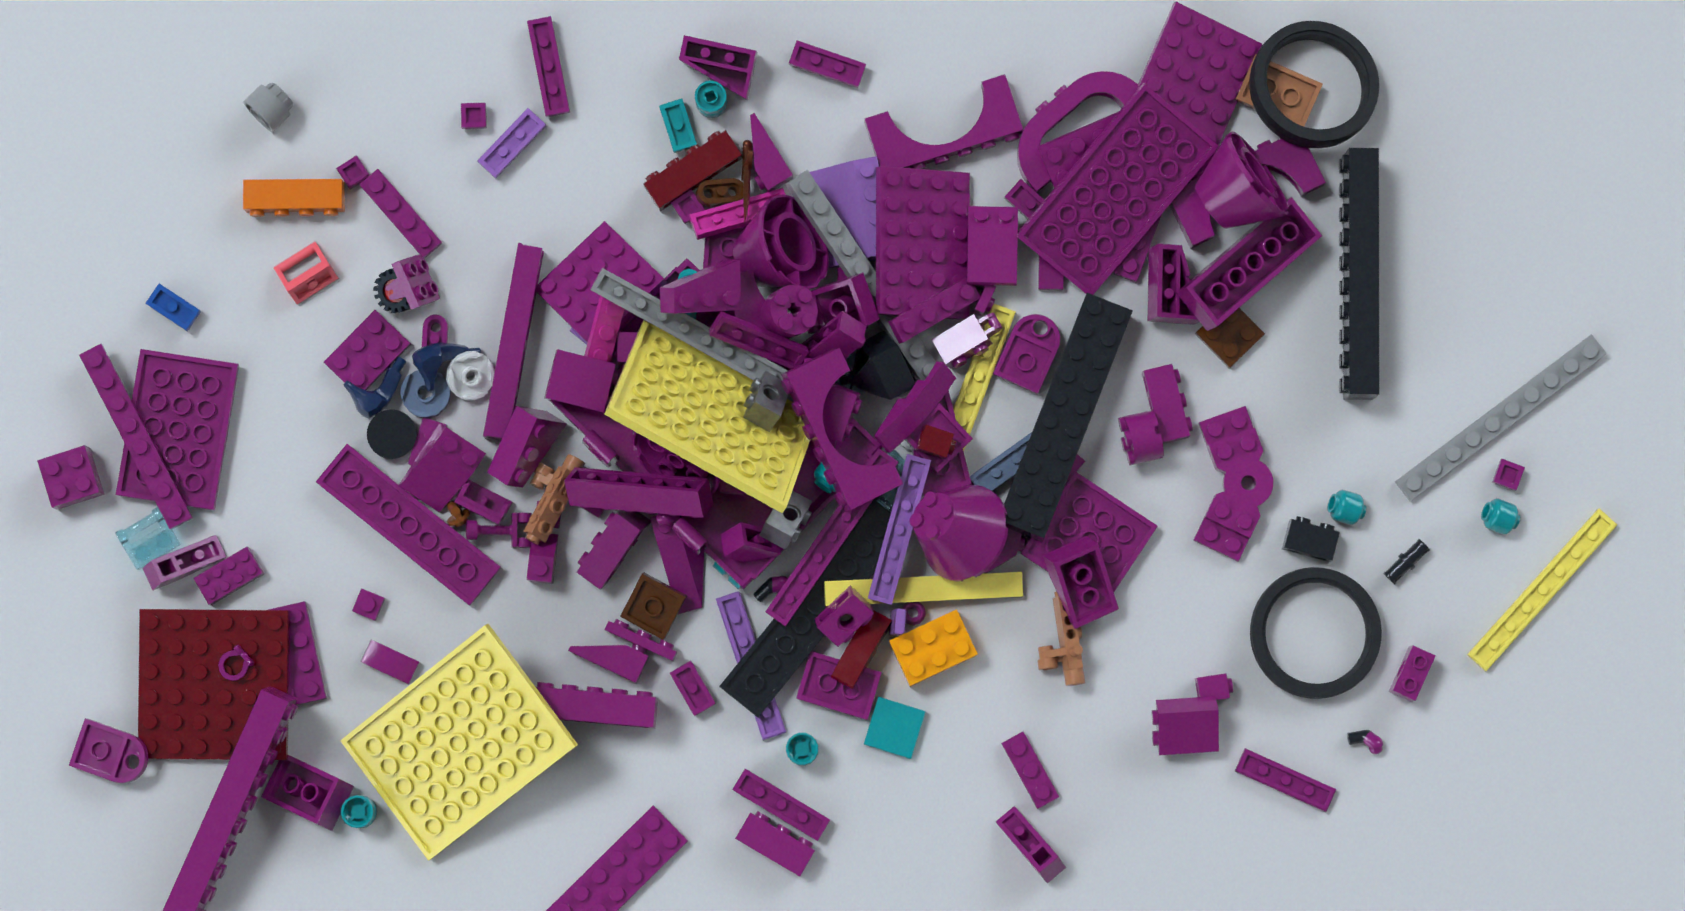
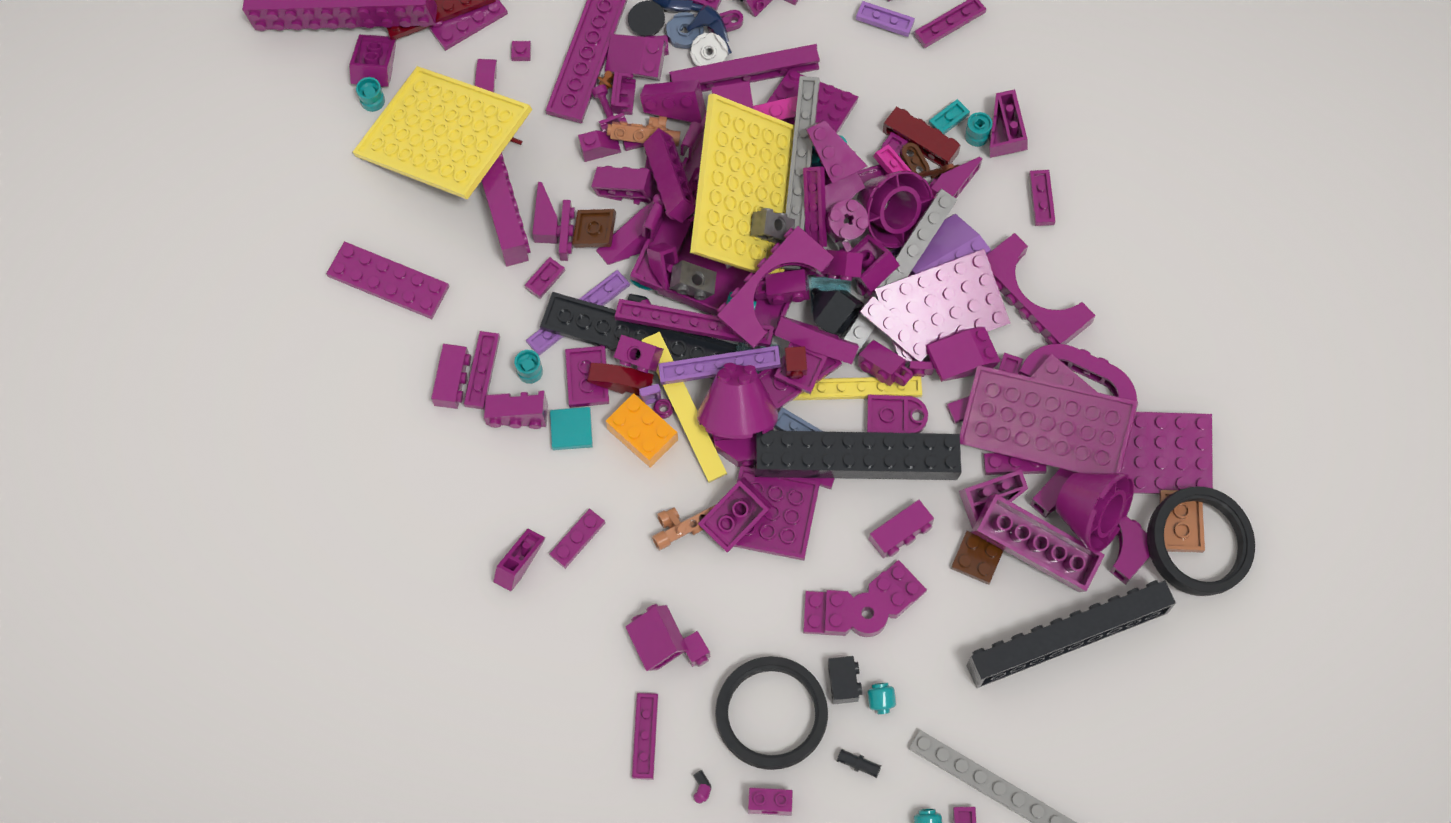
camera: 70 degrees right, 15 degrees down
(851, 783) = (516, 411): none -> magenta wedge
(1141, 437) = (866, 517): magenta brick -> none

